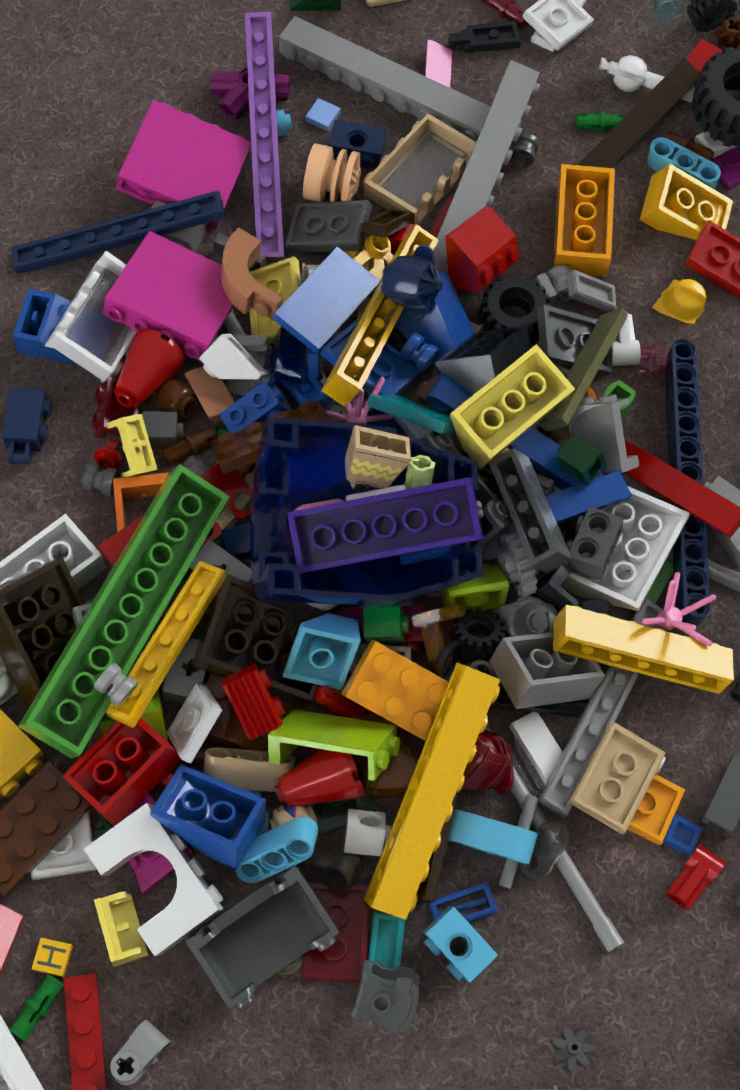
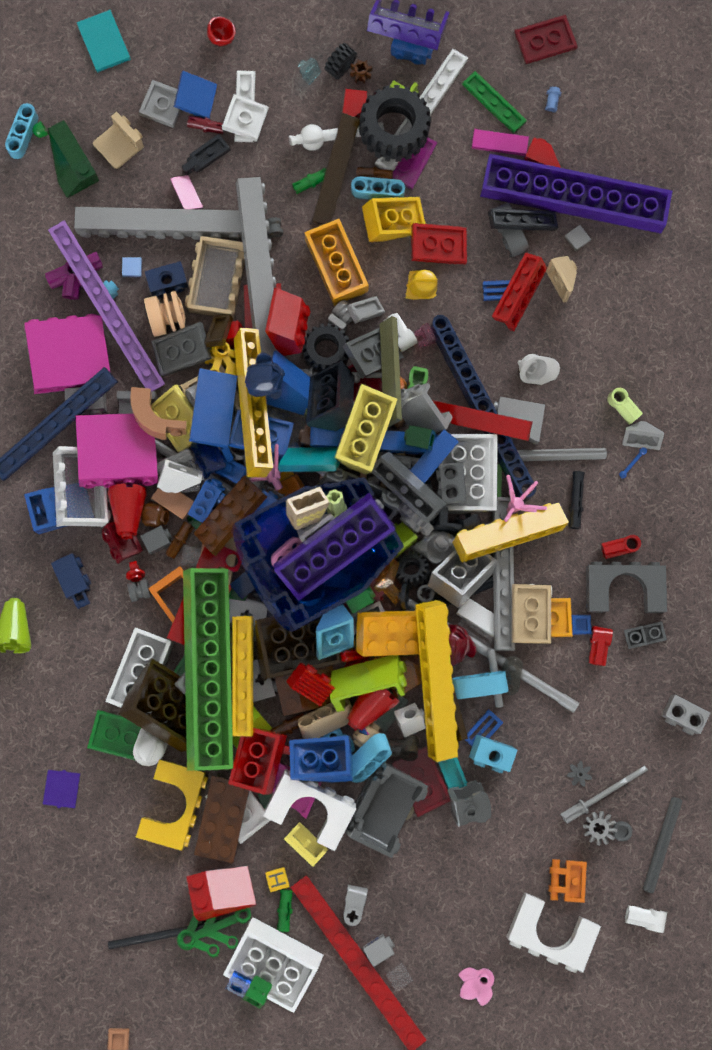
camera: 30 degrees left, 15 degrees up
(116, 684) = (231, 720): light grey wheel -> none
(135, 445) = (149, 561): light yellow hinge -> none
(194, 722) = (283, 712): white tile -> none
(419, 352) = (292, 413): blue wheel -> none

